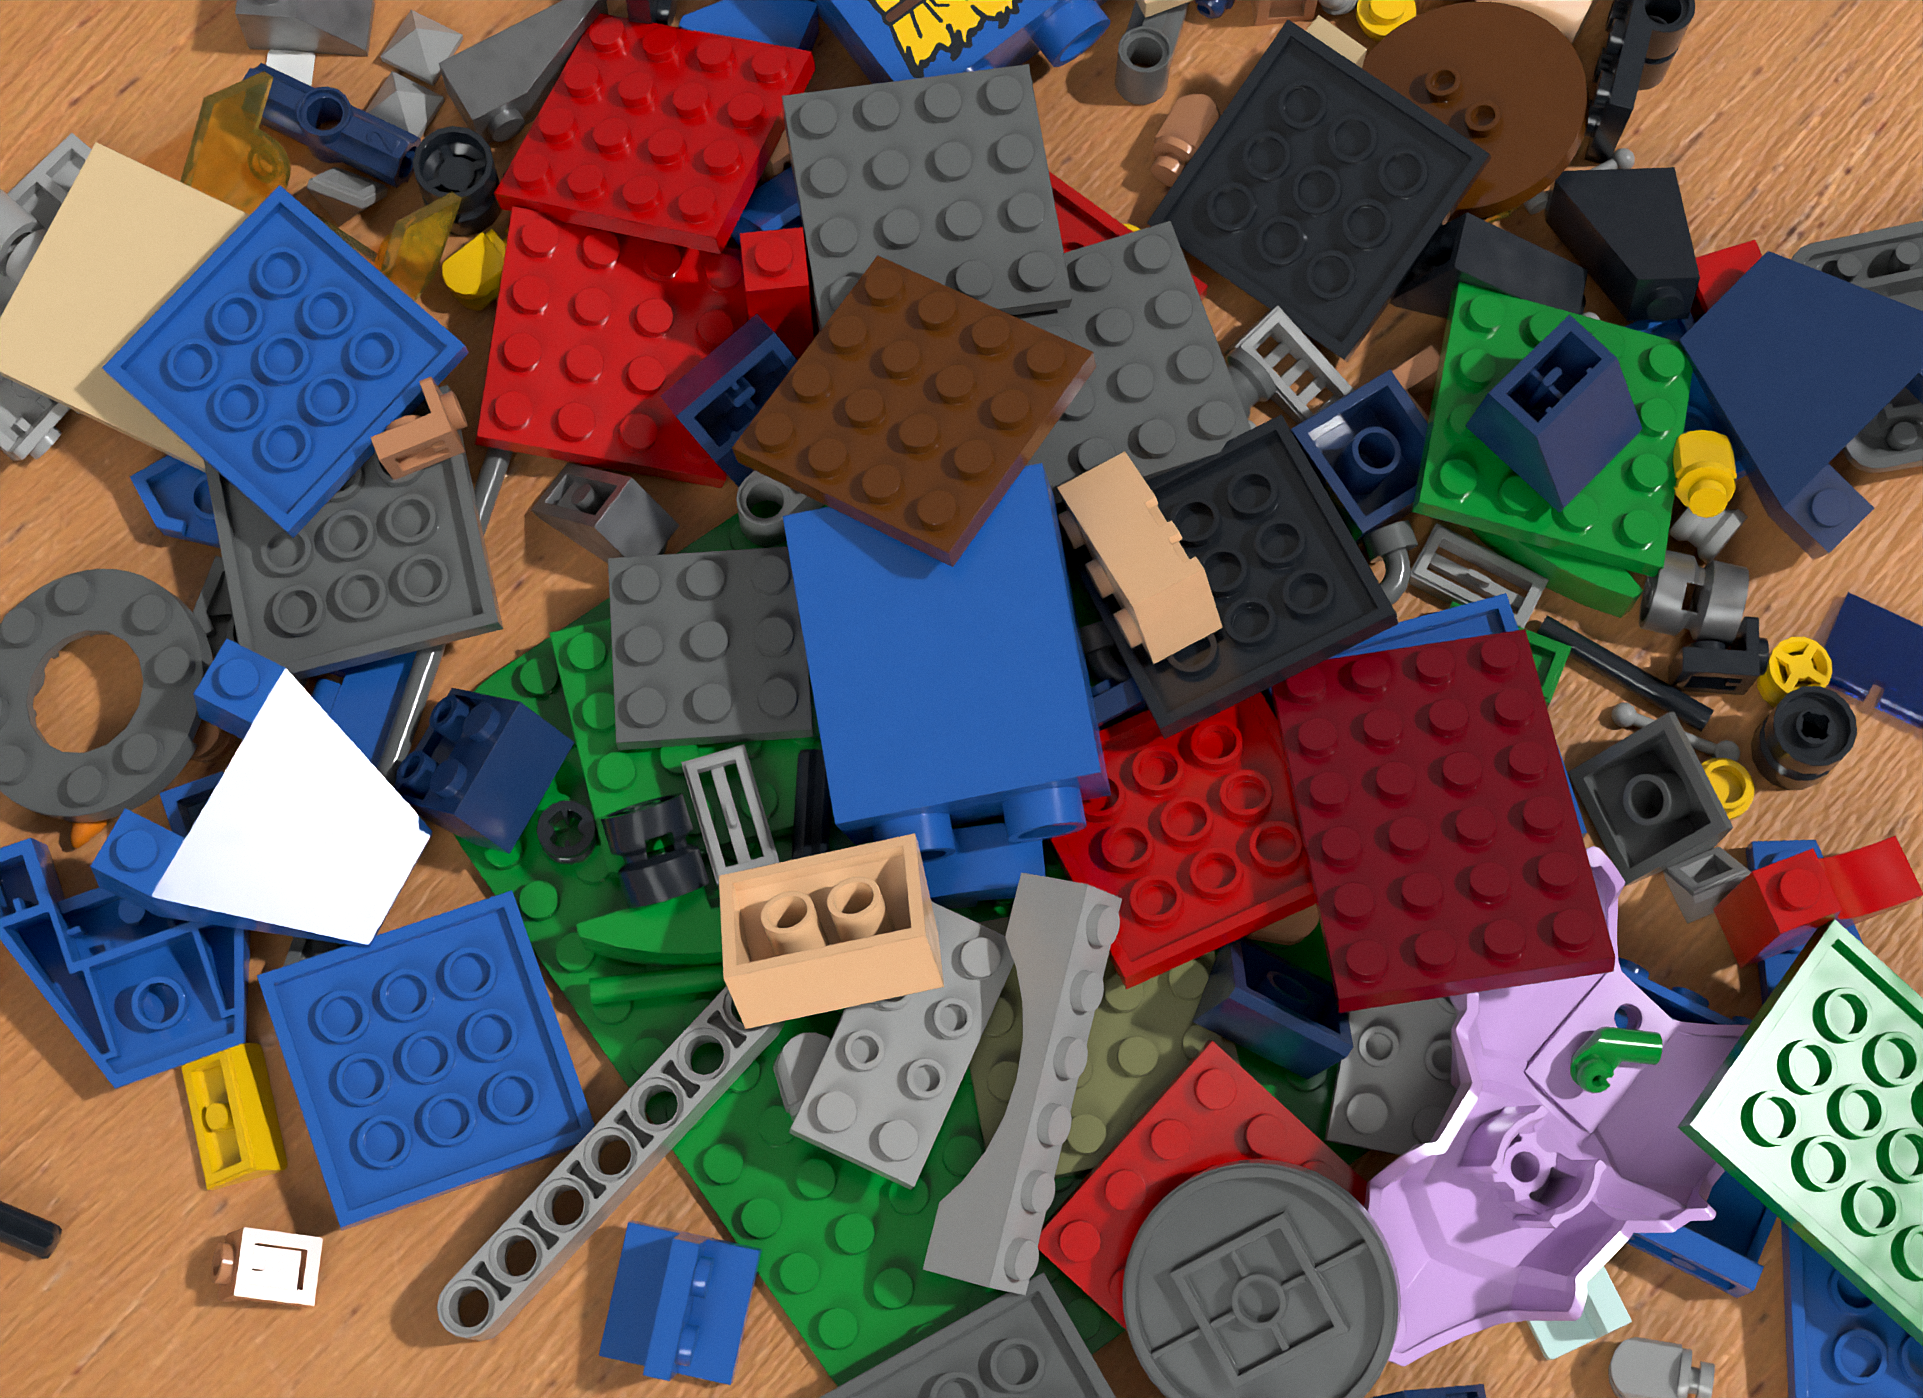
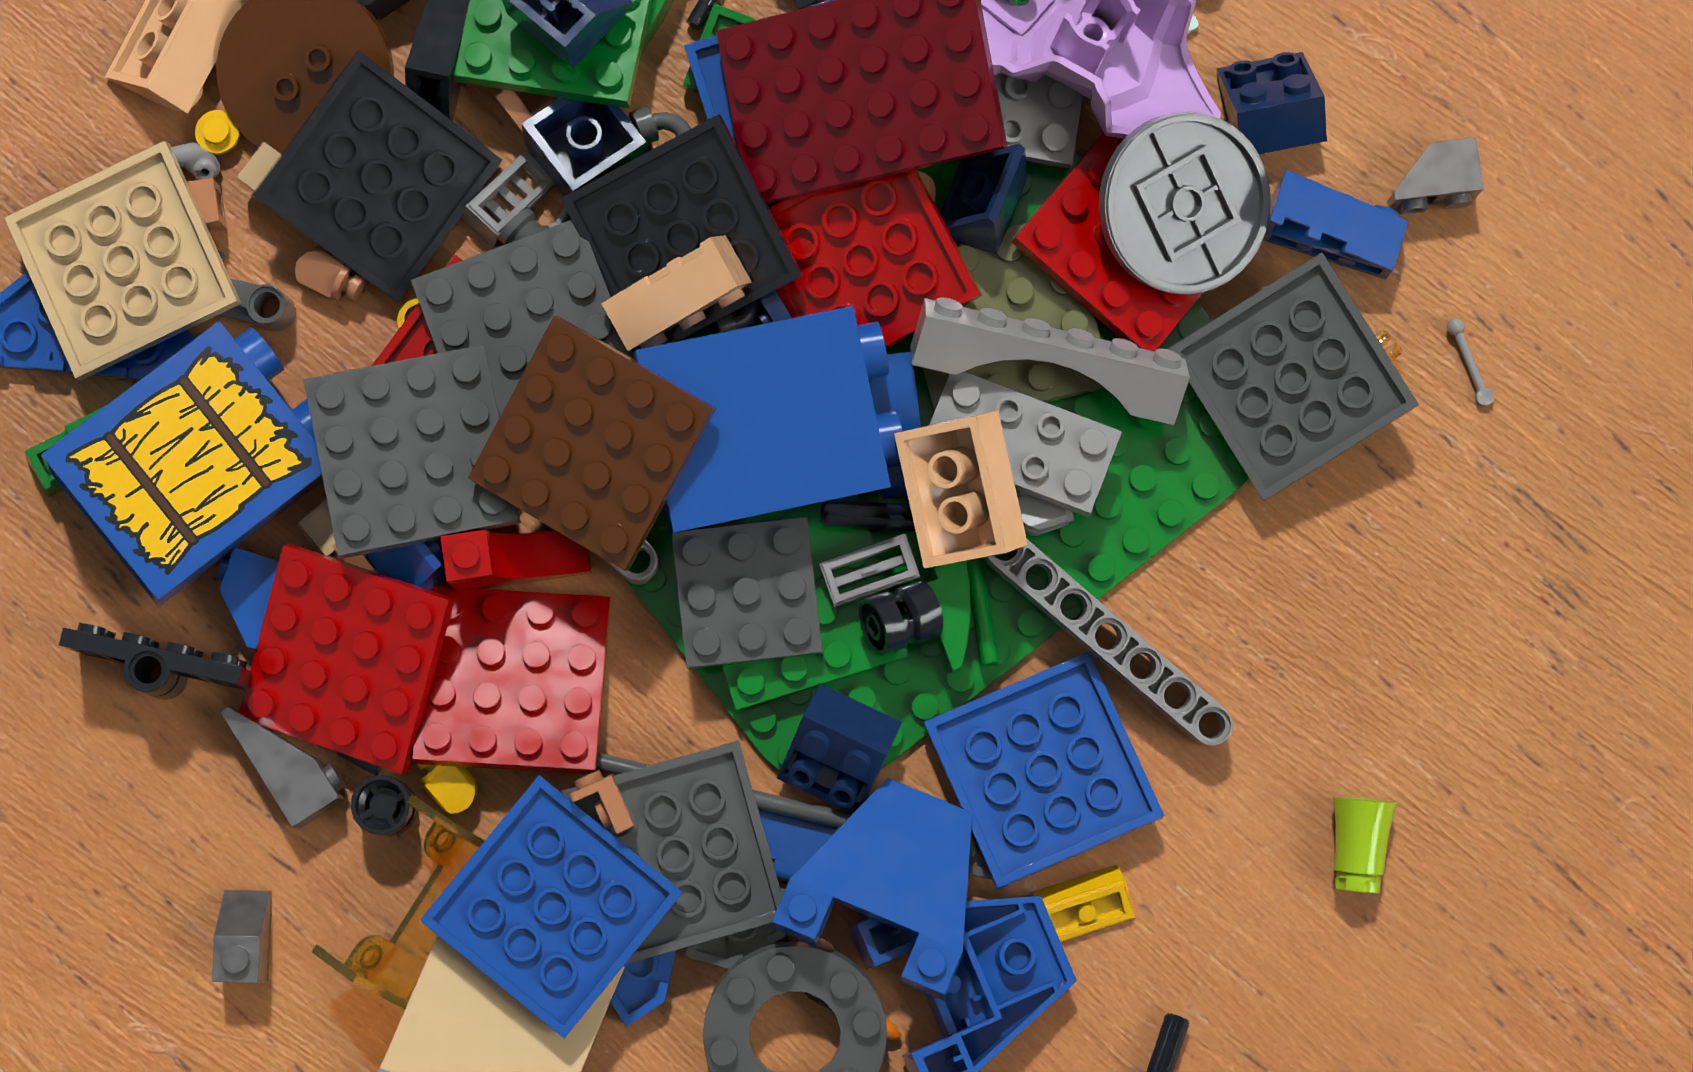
camera: 90 degrees left, 10 degrees up
(267, 1267) = (1188, 868): bracket -> none
(293, 63) = (287, 949): white sticker -> none
(345, 193) = (390, 891): light grey slope -> none
(357, 140) = (352, 882): dark blue piece -> none
(405, 104) = (317, 859): light grey slope -> none
(421, 46) = (264, 849): light grey slope -> none
(547, 835) = (877, 673): black bush -> none
(605, 513) = (642, 680): flat silver slope -> none
(680, 1303) = (1197, 590): blue bracket -> none
(729, 390) = (561, 580): dark blue slope -> none
(1483, 558) = (677, 76): light grey tile -> none

